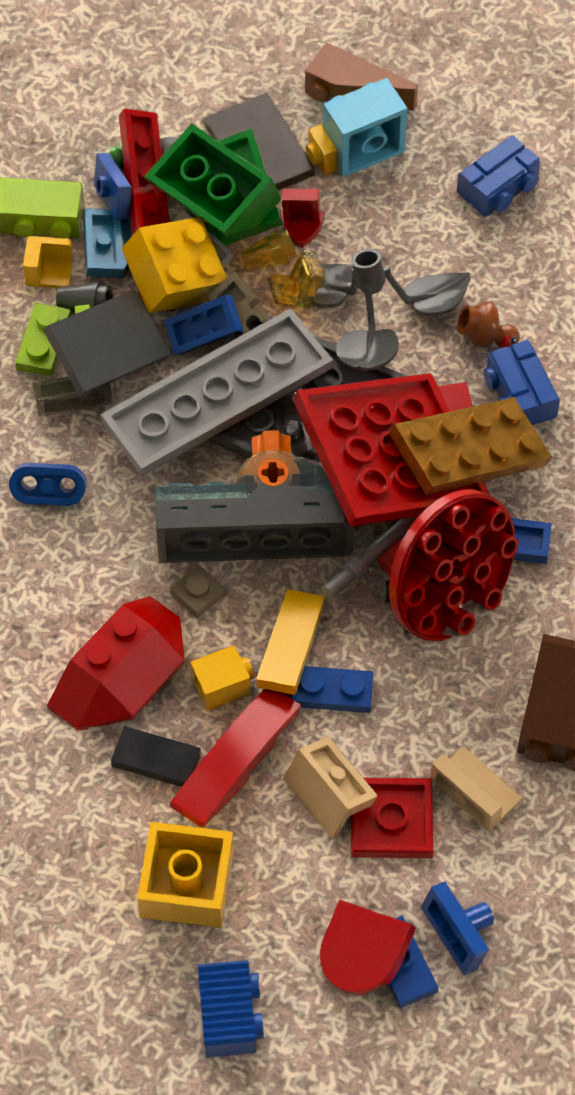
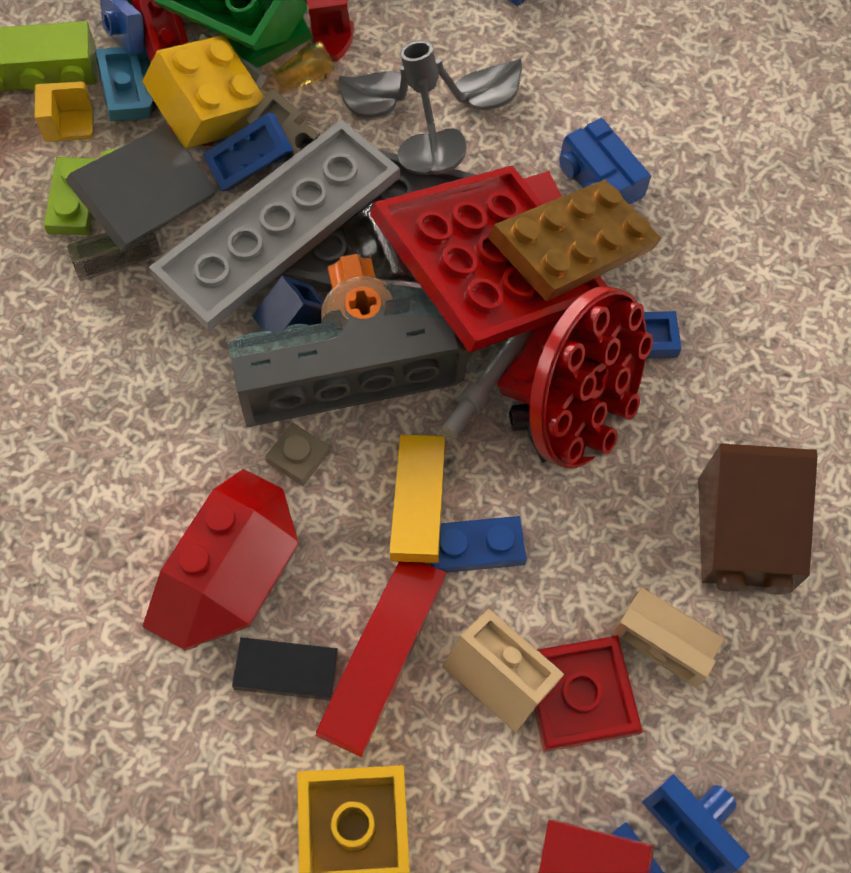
camera: 15 degrees left, 5 degrees up
(49, 484) = (103, 357): blue plate -> none
(83, 294) = (107, 139): dark grey cone -> none
(212, 464) = (289, 304): none -> dark blue brick
(221, 677) = (346, 555): yellow brick -> none
(301, 284) = (346, 93): clear yellow bracket -> none
(483, 327) = (548, 113): dark orange animal -> none

